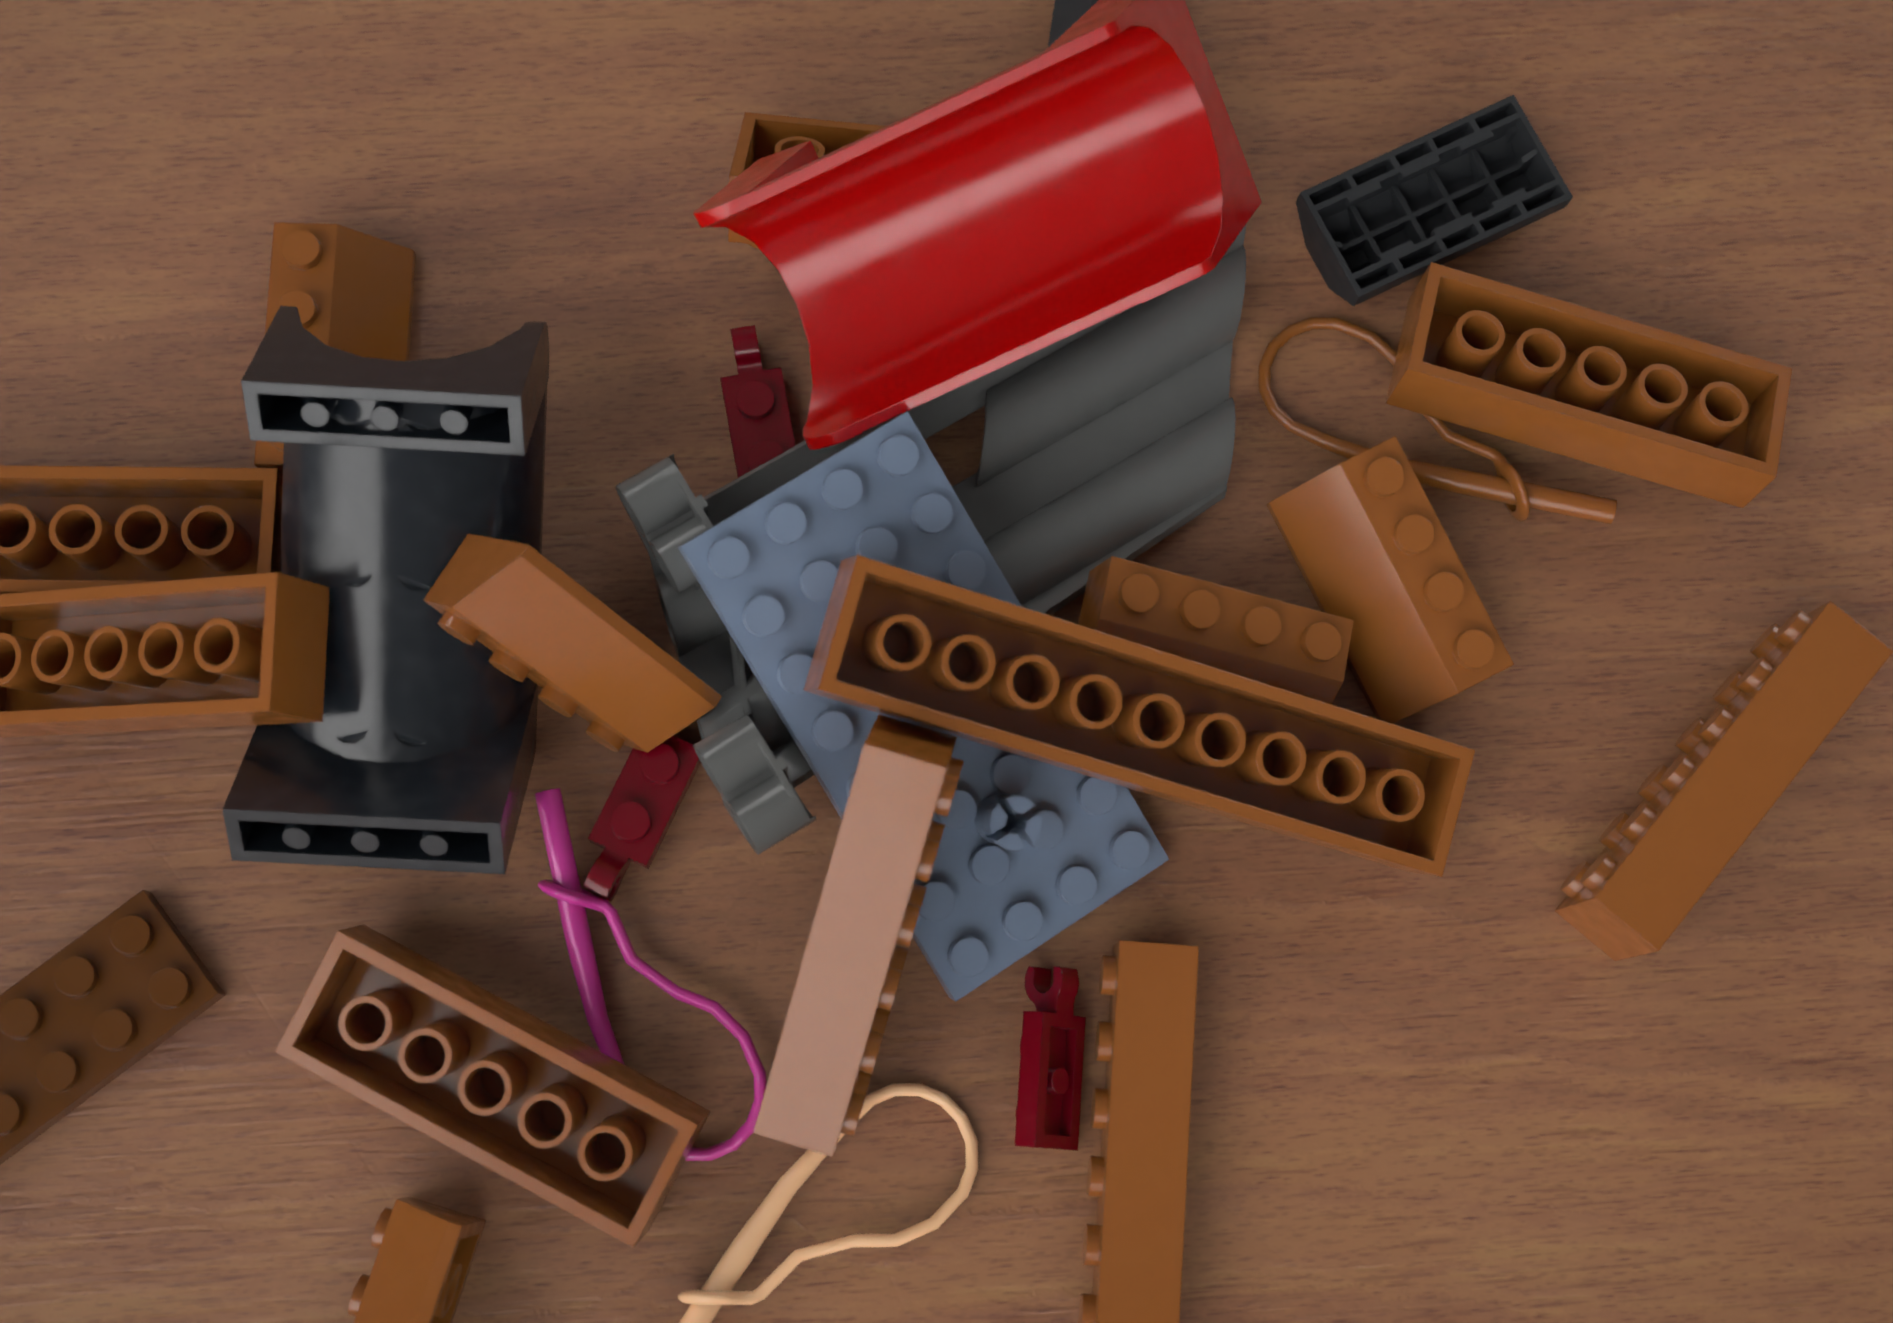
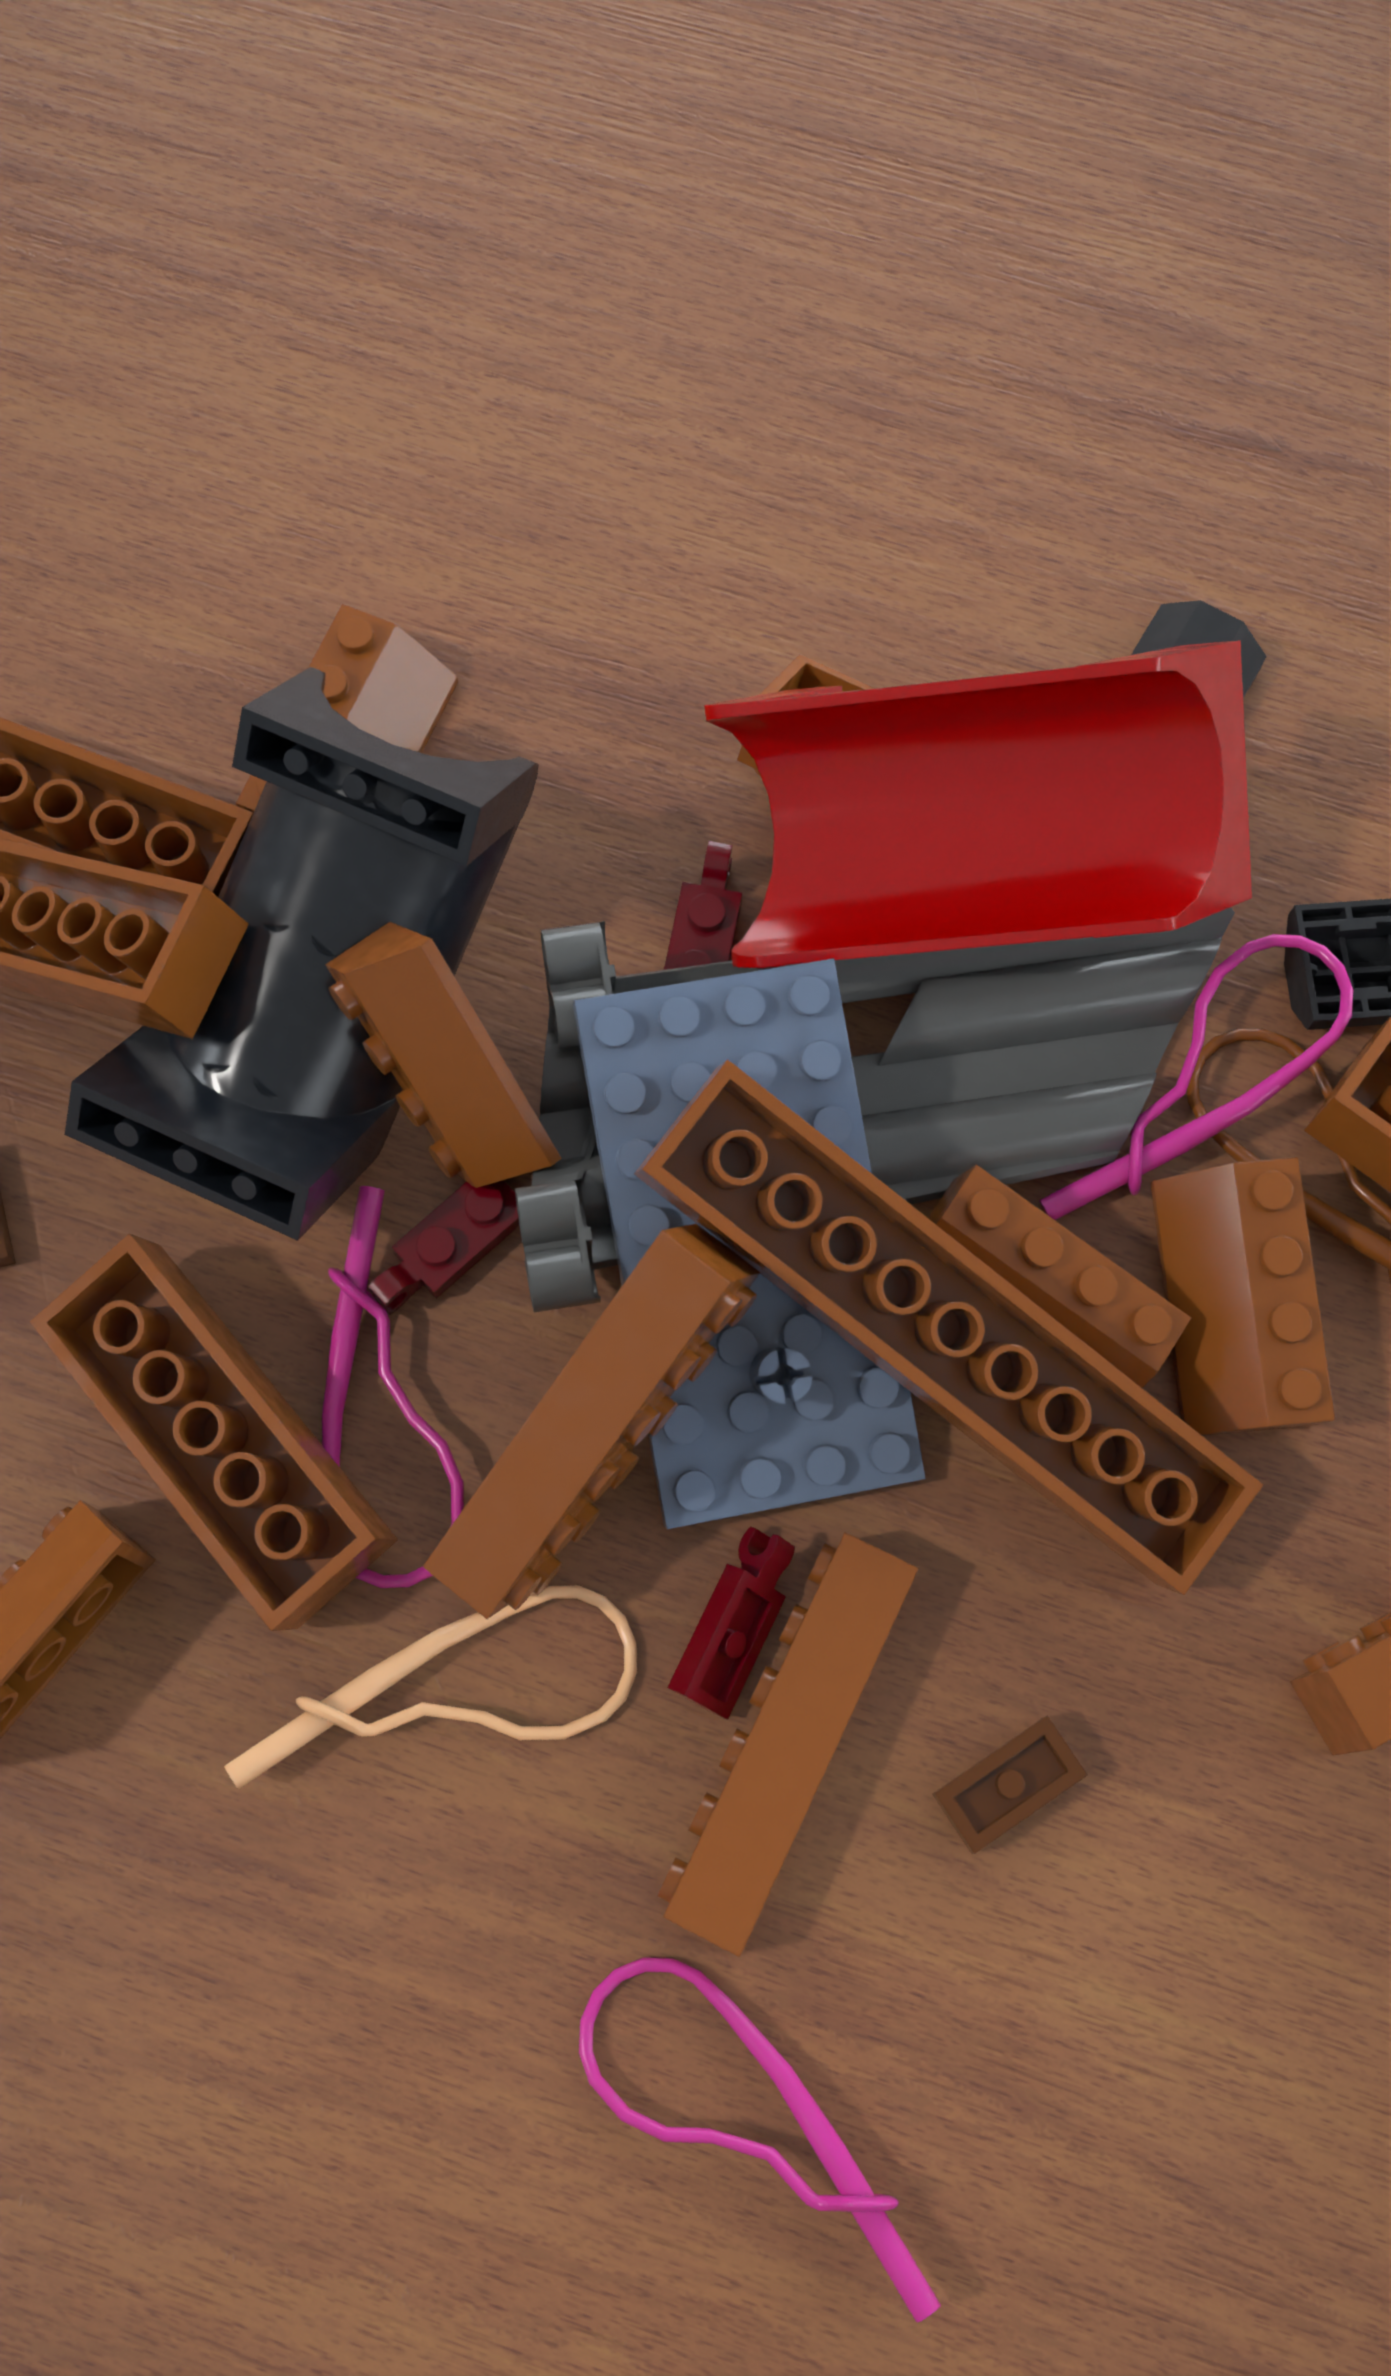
camera: 30 degrees right, 5 degrees down
(1283, 450) = (1183, 1139): none -> dark pink piece
(1349, 1105) = (1009, 1784): none -> reddish brown plate

